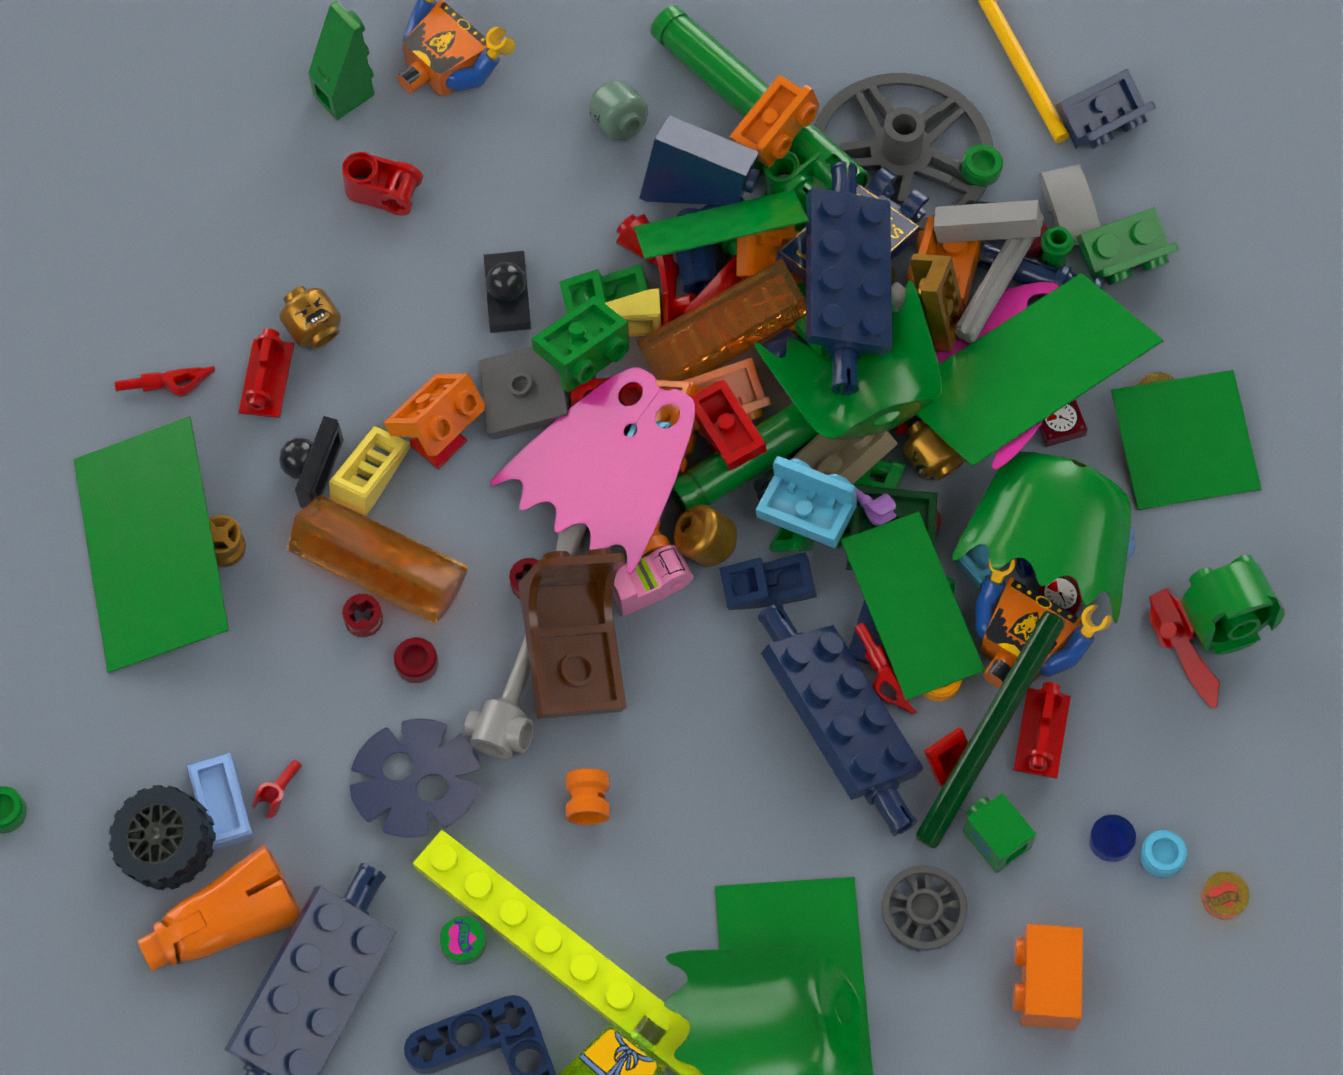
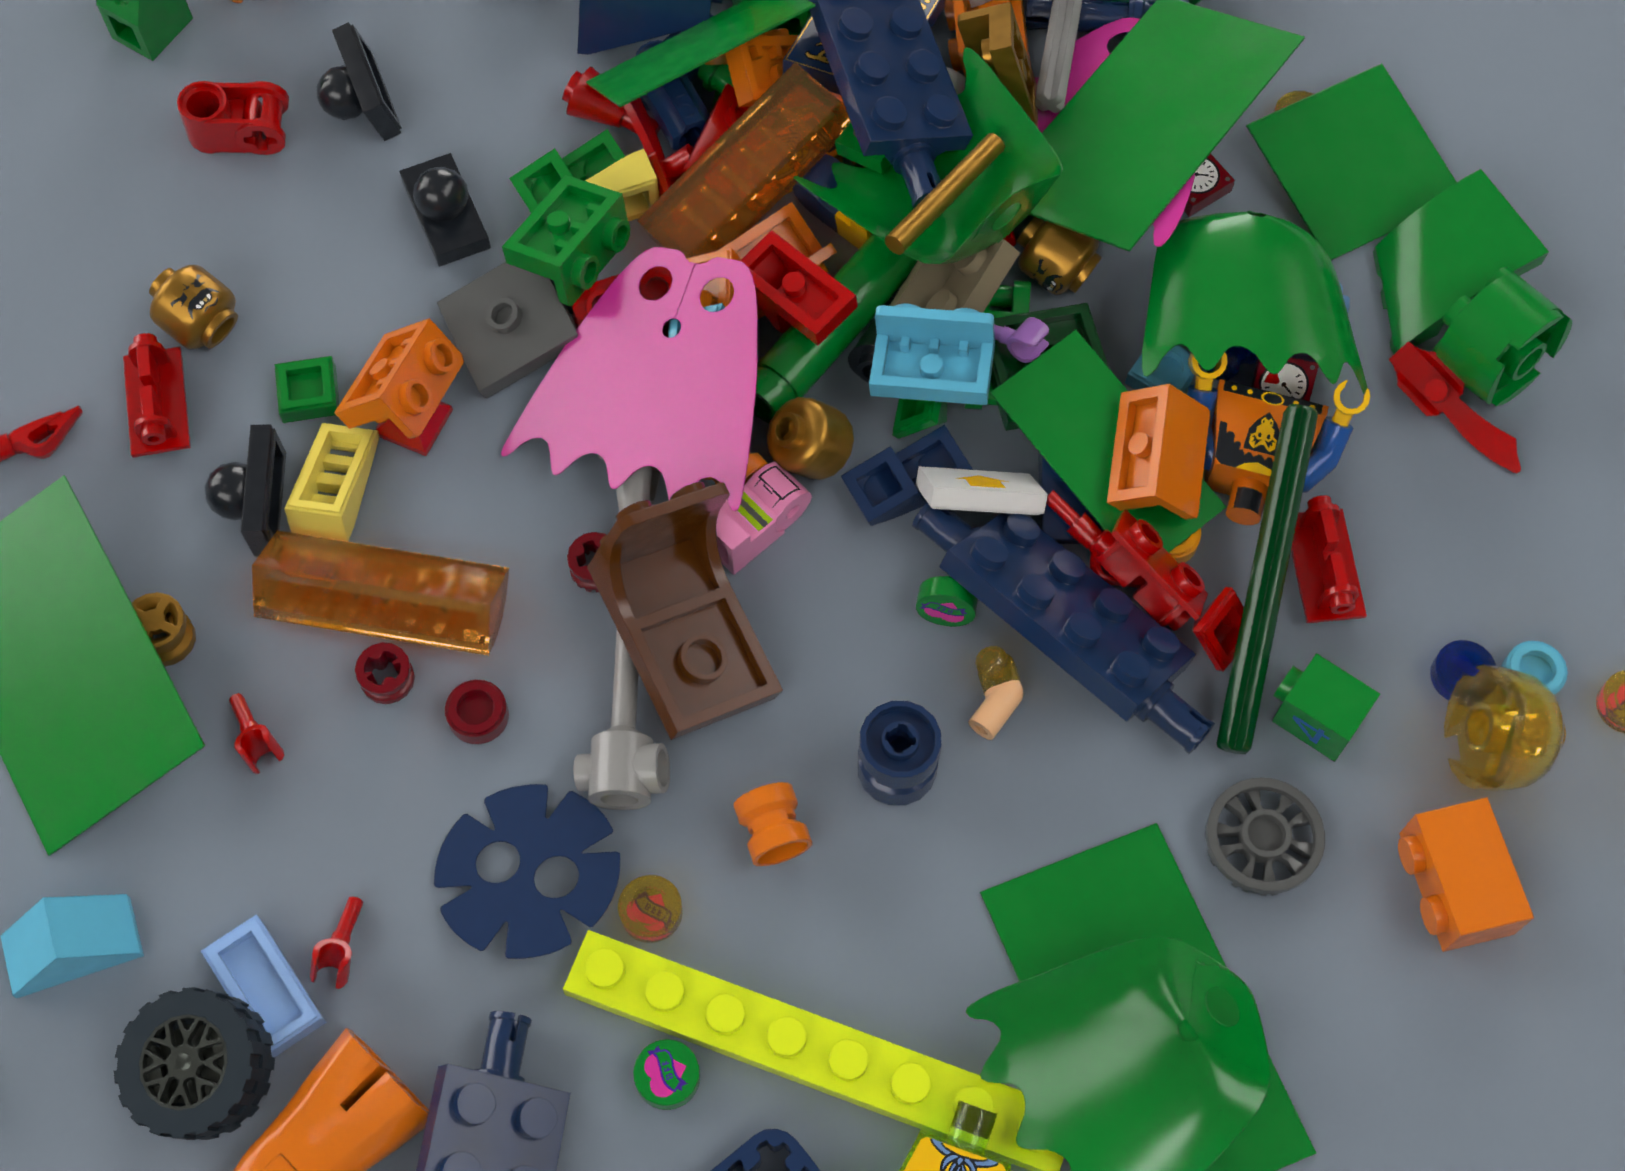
camera: 20 degrees left, 0 degrees up
(105, 733) = (69, 940): none -> medium azure slope
(262, 634) = (254, 737): none -> red hand
(371, 398) = (306, 389): none -> green tile
(474, 181) = (357, 85): none -> black tile
(488, 828) = (650, 908): none -> clear yellow tile
(688, 774) = (898, 752): none -> dark blue wheel
(759, 679) = (945, 602): none -> green tile
(779, 752) = (1001, 691): none -> arm
(812, 608) = (981, 491): none -> white tile
(854, 386) = (944, 194): none -> pearl gold bar
(904, 681) = (1171, 588): none -> red hinge
(946, 617) = (1159, 451): none -> orange panel
(1120, 886) = (1504, 729): none -> clear yellow cylinder
(1221, 528) = (1450, 252): none -> green slope

